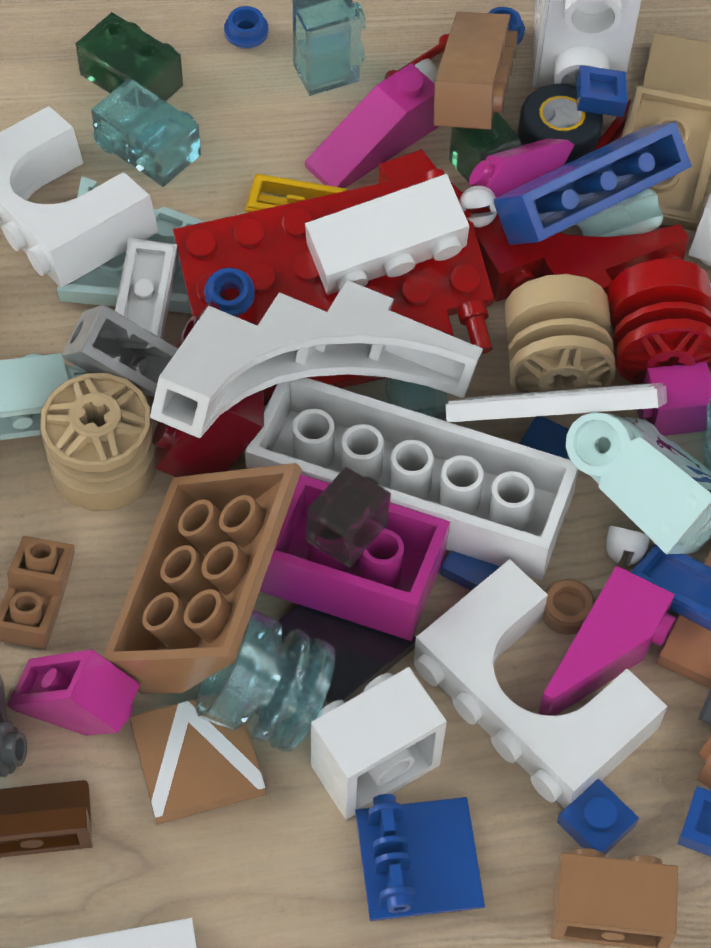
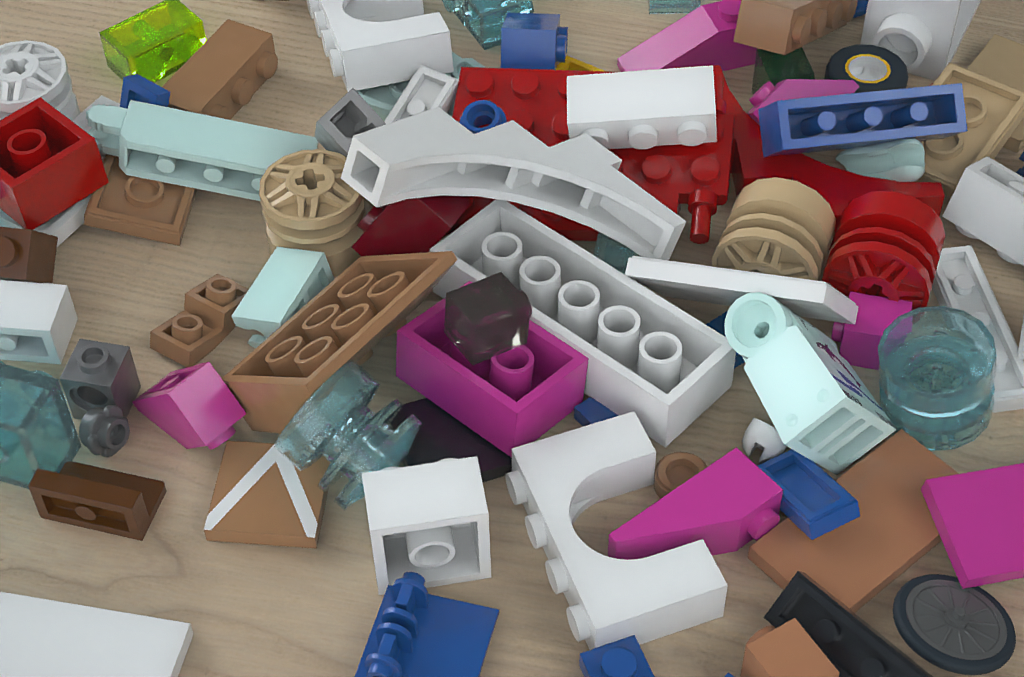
camera: 25 degrees right, 10 degrees down
(108, 541) = (281, 290): none -> light aqua hinge
(224, 175) = (533, 41): none -> blue brick
(476, 198) = (745, 105): white hinge -> none
(601, 91) = (910, 55): blue plate -> none

